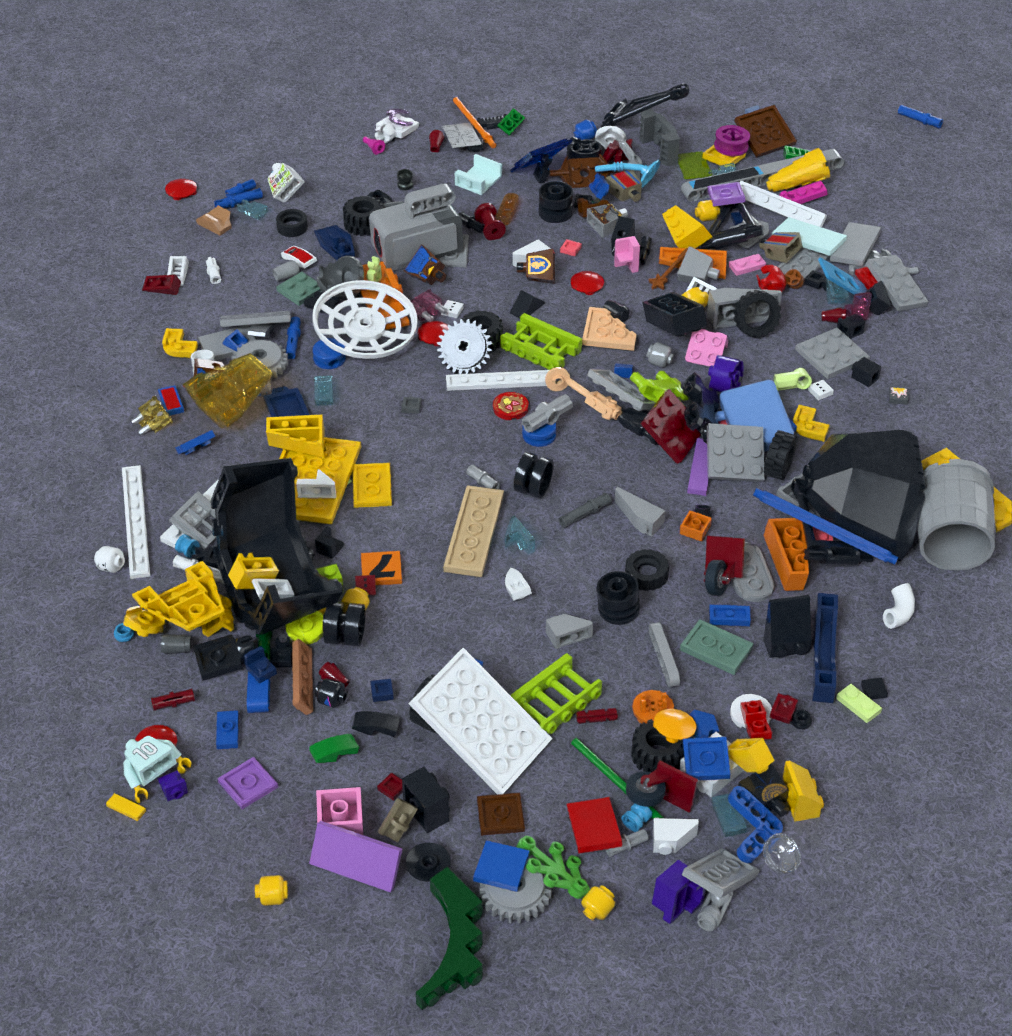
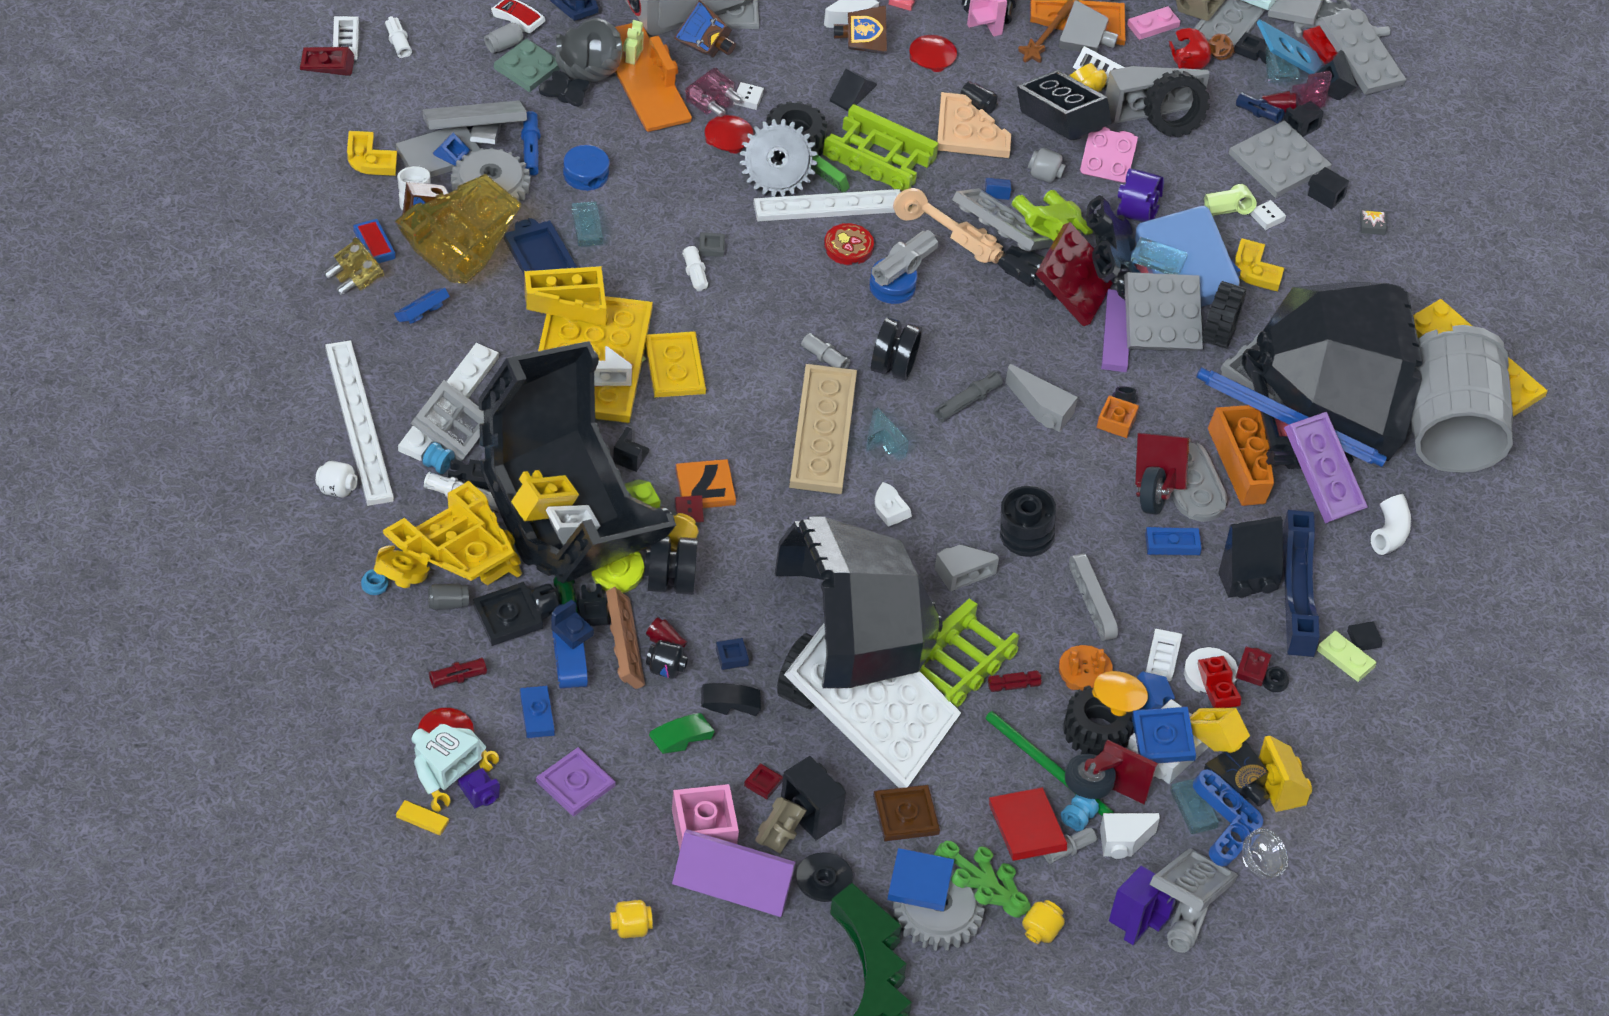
camera: 10 degrees left, 5 degrees up
(359, 315) = (632, 109): white dish -> none
(396, 420) = (695, 268): none -> white axle
(481, 652) = (873, 600): none -> black windscreen
(502, 359) = (830, 174): none -> bright green tile
(651, 558) = (1063, 464): black tyre -> none
(713, 699) = (1163, 656): none -> white slope
(716, 647) = (1160, 584): sand green plate -> none
(734, 413) = (1158, 256): none -> clear light blue plate
(823, 320) = (1272, 113): none -> dark blue pin
(849, 563) = (1325, 467): none -> medium lavender tile

